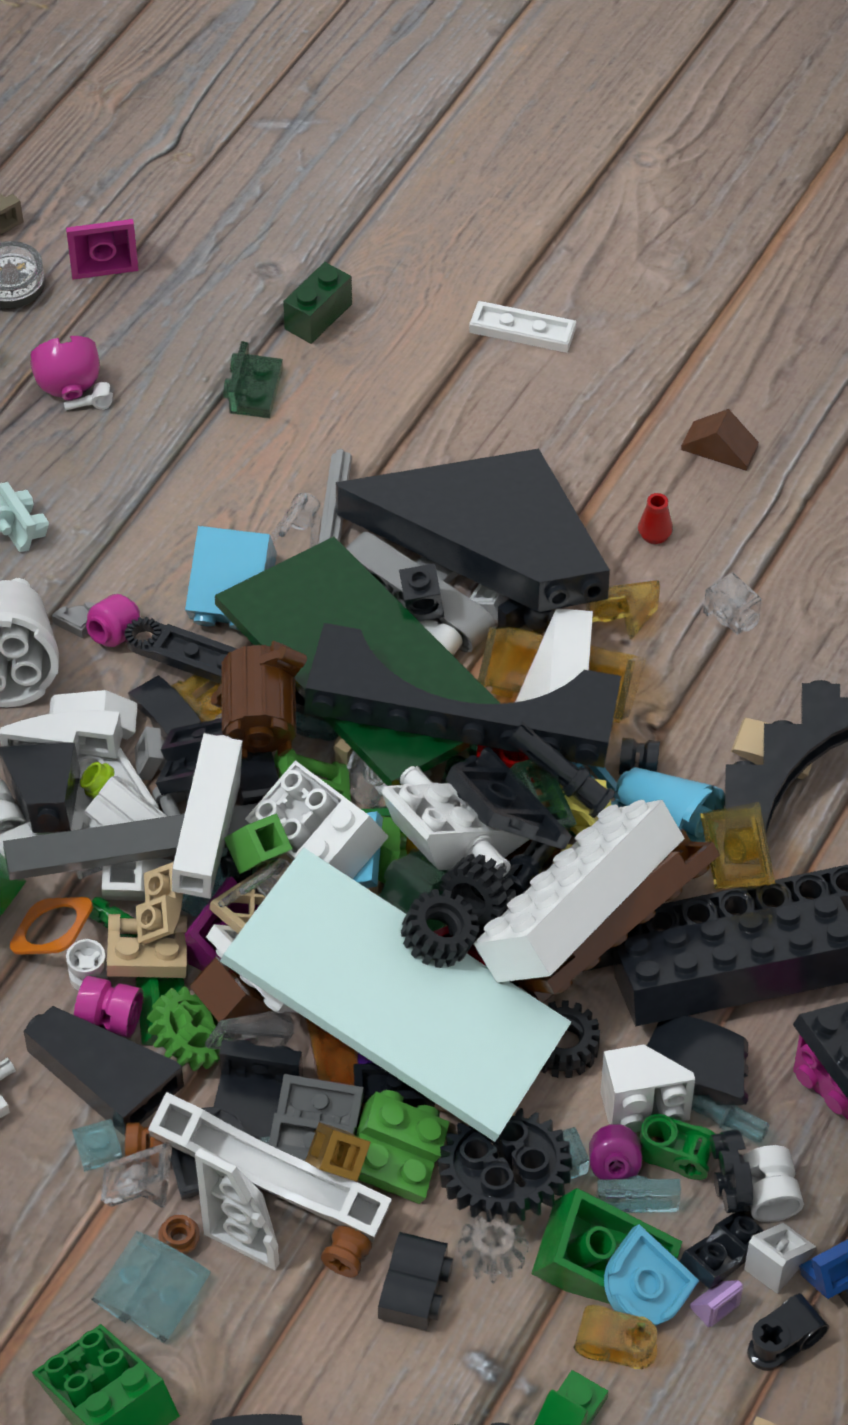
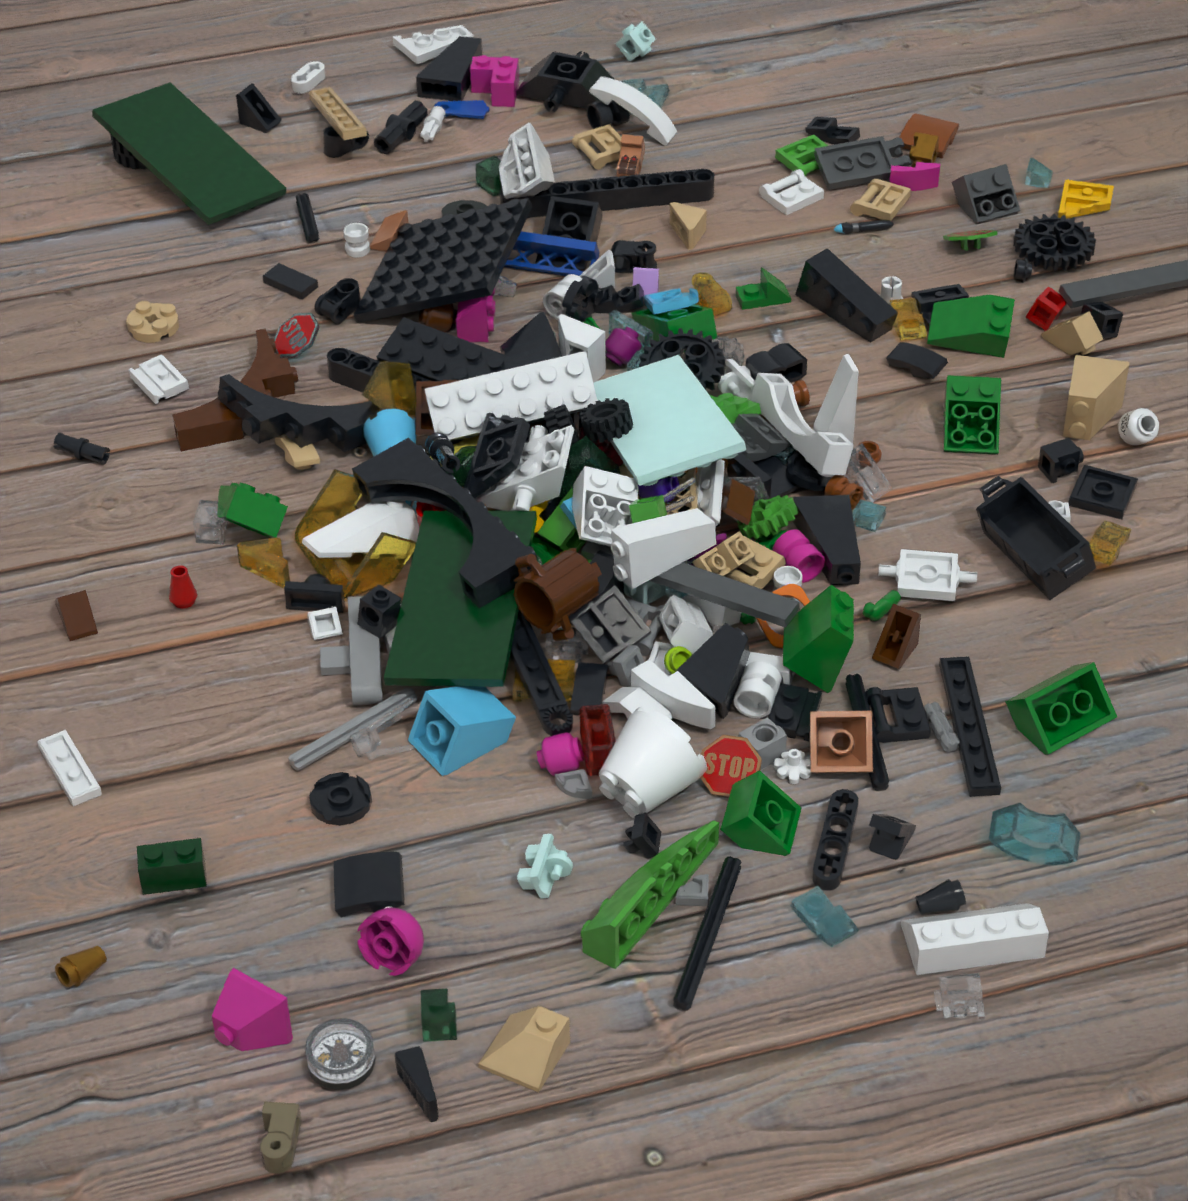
camera: 135 degrees left, 10 degrees down
(89, 647) = (596, 736): none -> clear red brick
(149, 408) = (368, 882): none -> black slope
(151, 1285) = (905, 442): clear light blue slope -> none
(252, 383) = (281, 852): clear green bracket -> none
(266, 461) = (340, 799): none -> black tile
(290, 200) = (79, 966): none -> pearl gold cone
(337, 1151) = (764, 397): pearl gold brick -> none
(409, 1215) = (736, 380): none -> white hips
(489, 521) = (282, 629): black slope -> none
(703, 625) = (251, 510): none -> green slope

